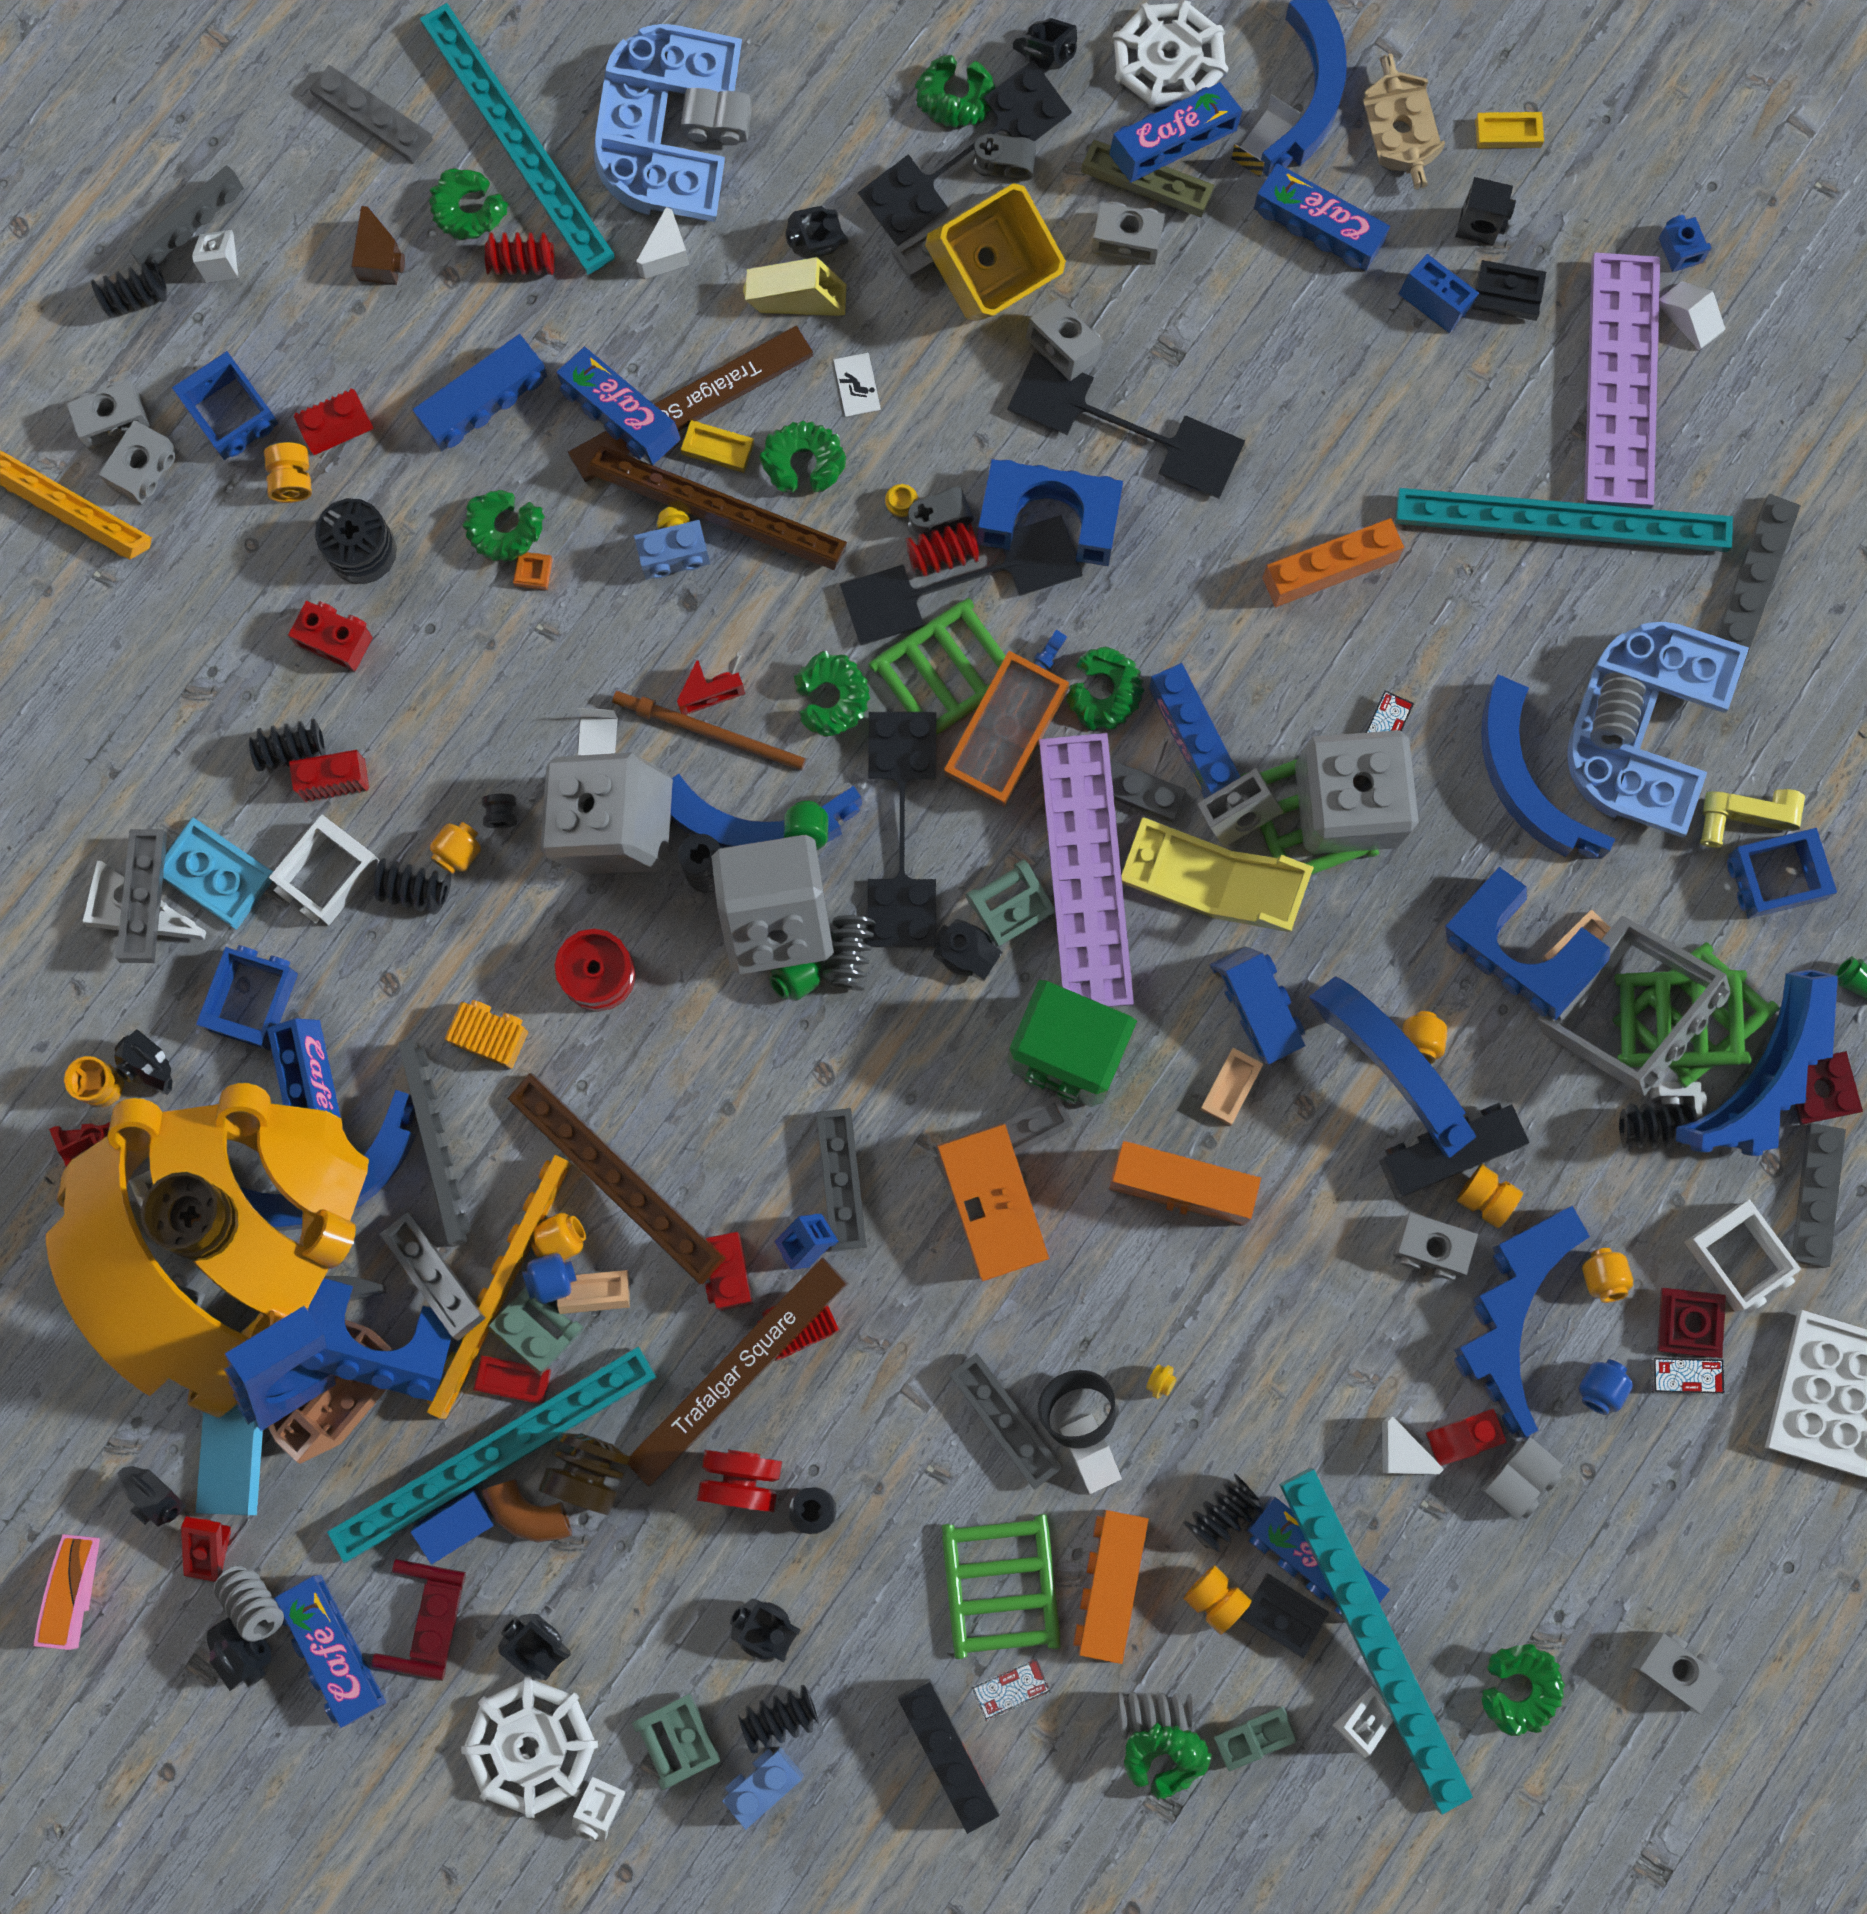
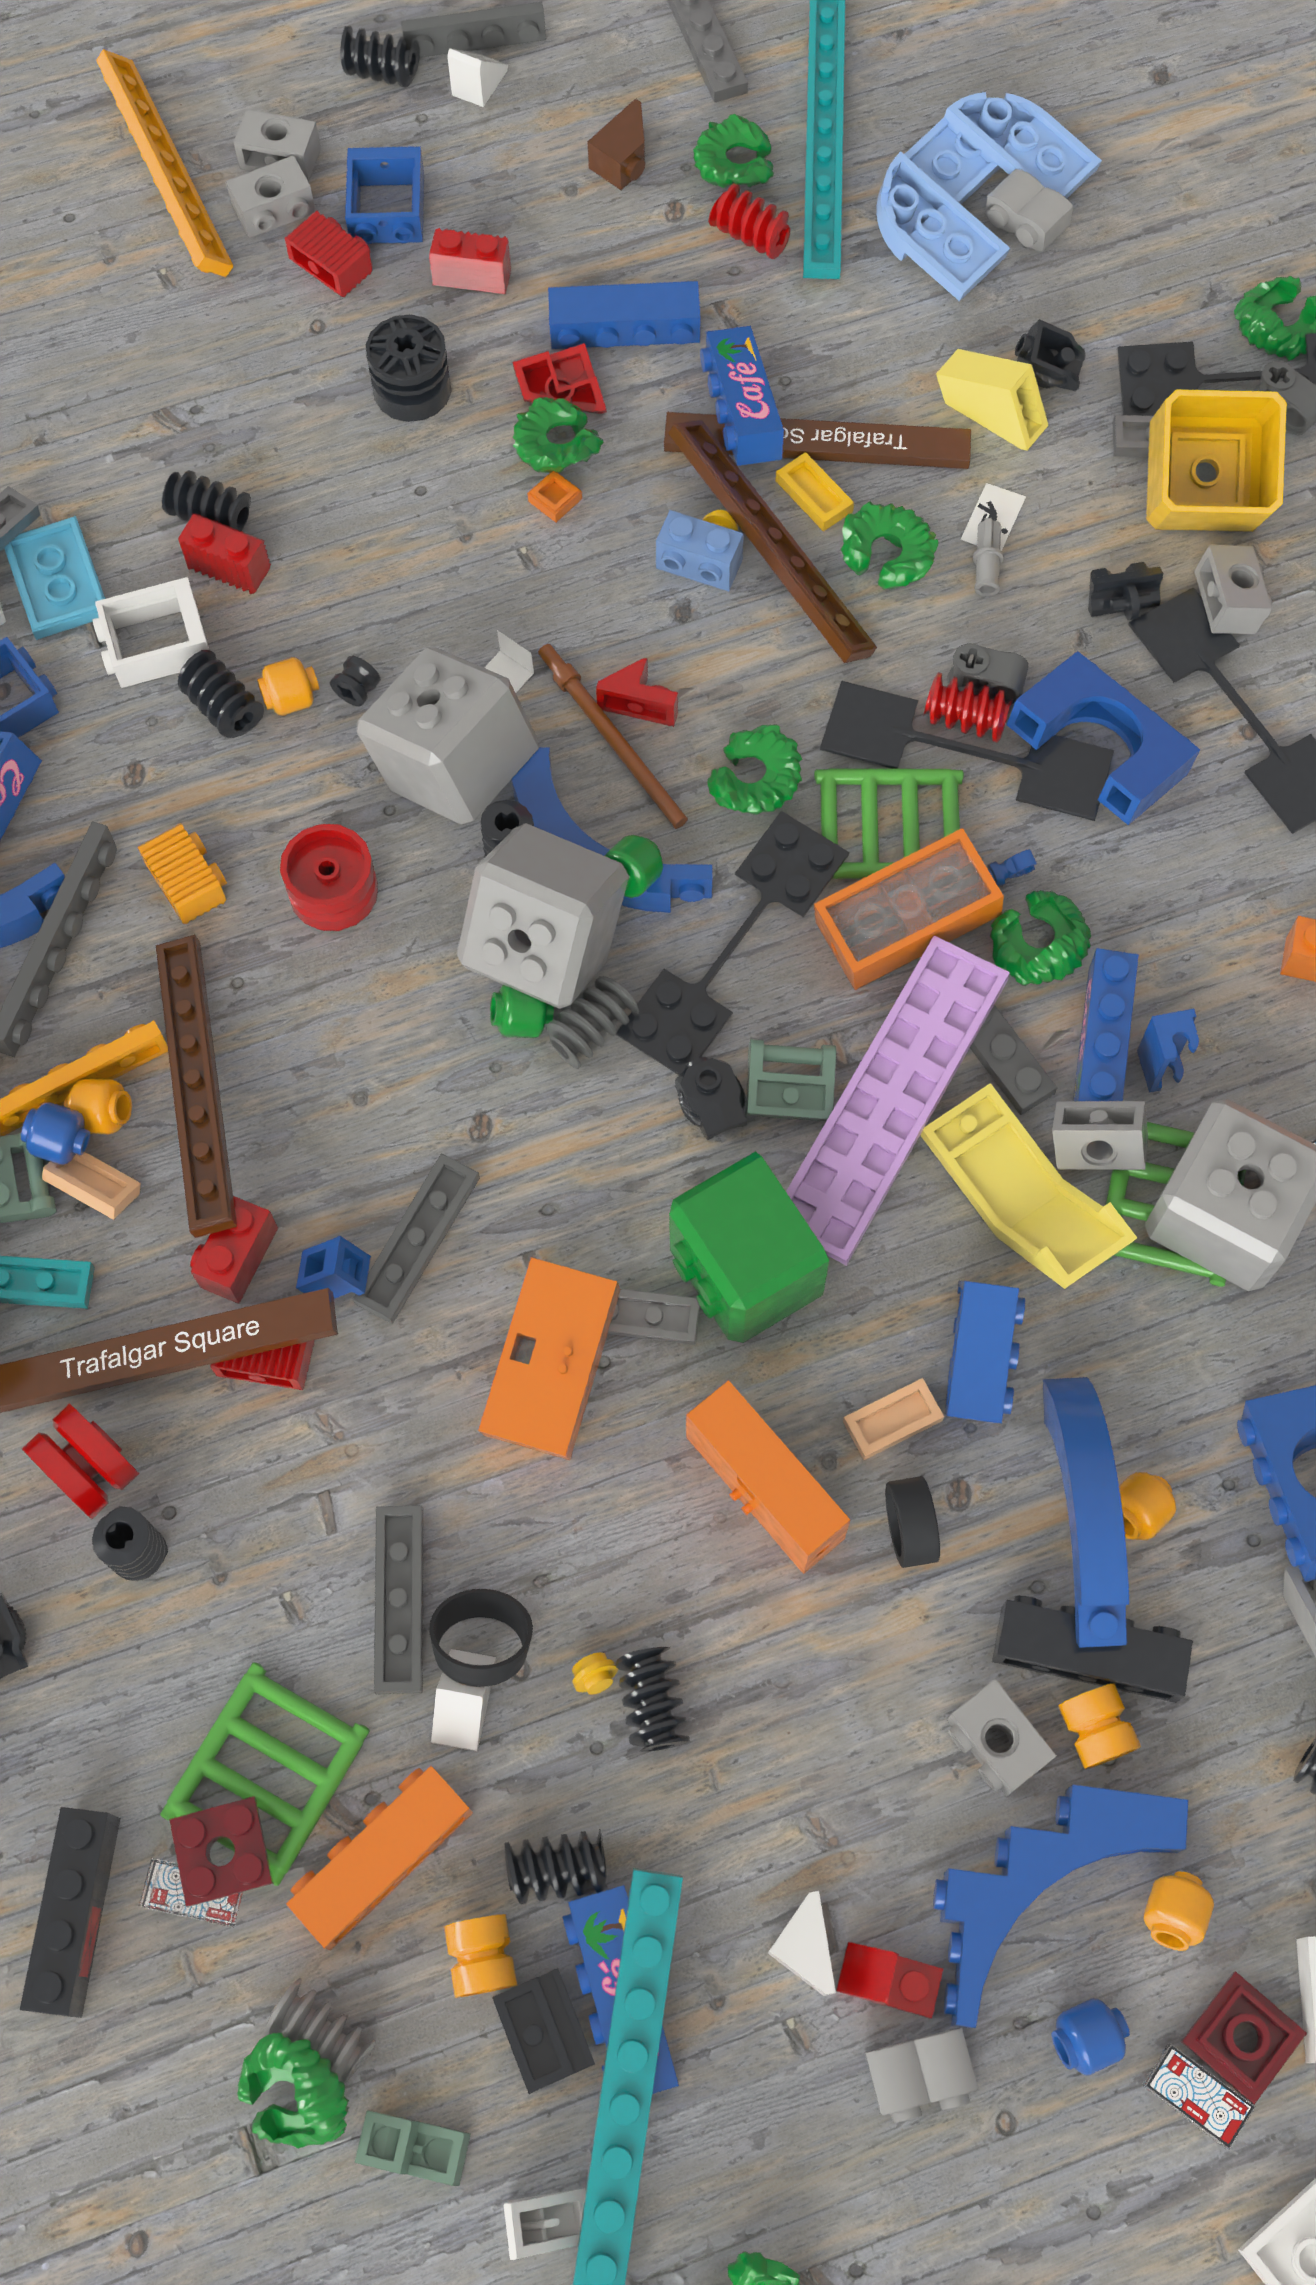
camera: 35 degrees right, 10 degrees down
(219, 481) = (329, 253): none -> red brick
(288, 475) = (395, 279): light orange wheel -> none
(331, 635) = (324, 437): red brick -> none
(471, 474) = (561, 375): none -> red slope
(663, 249) = (890, 292): white slope -> none
(876, 420) = (988, 558): none -> light grey axle
(899, 499) = (957, 635): yellow plate -> none
(992, 389) = (1124, 591): none -> black hips
(1020, 1676) = (193, 1840): none -> dark red piece
(1210, 1372) = (651, 1699): none -> black piece
(1237, 719) = (1163, 1045): none -> blue hinge
(1293, 1148) = (912, 1522): none -> black tyre

